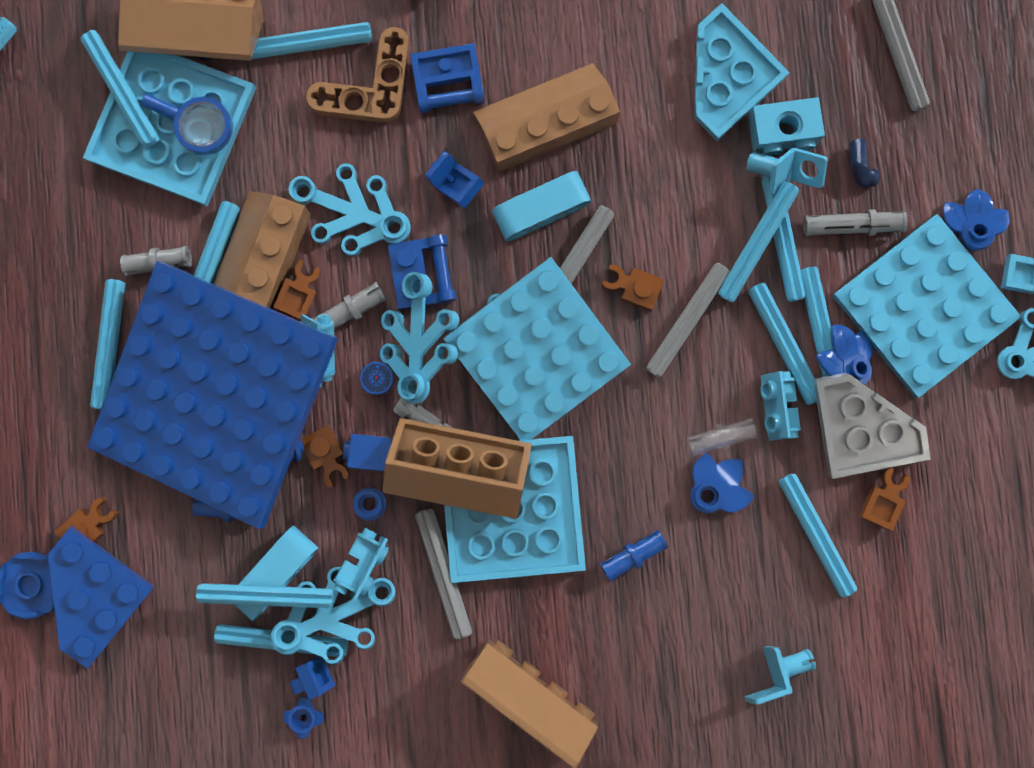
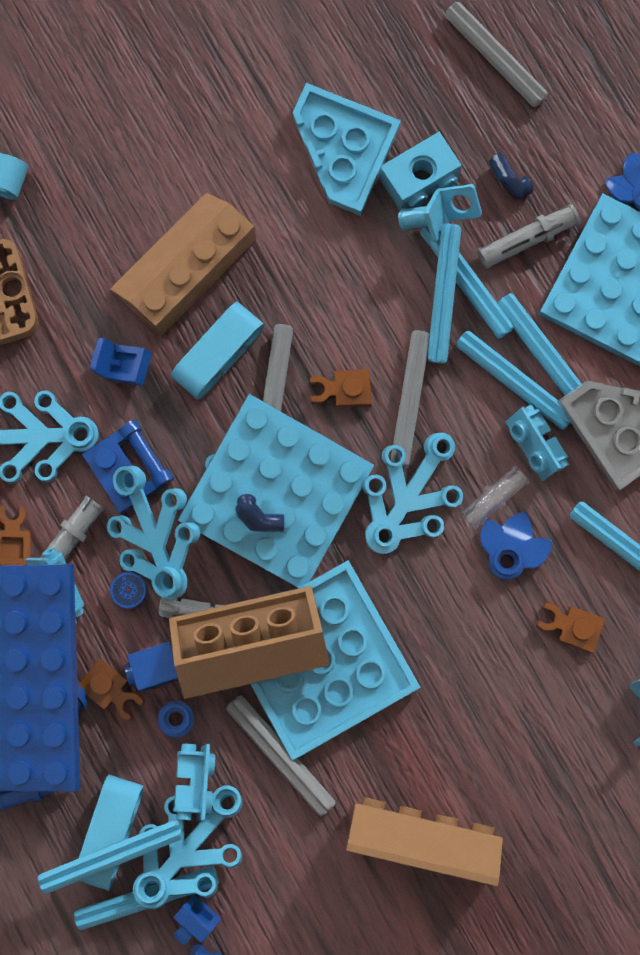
camera: 25 degrees left, 5 degrees down
(443, 68) = (65, 257): blue plate -> none
(508, 365) = (254, 518): none -> dark blue arm
(633, 555) = (461, 652): blue pin -> none
(647, 403) = (407, 497): none -> medium azure plant
(741, 578) = (577, 627): none -> dark orange plate
(847, 354) = (579, 363): blue plate -> none

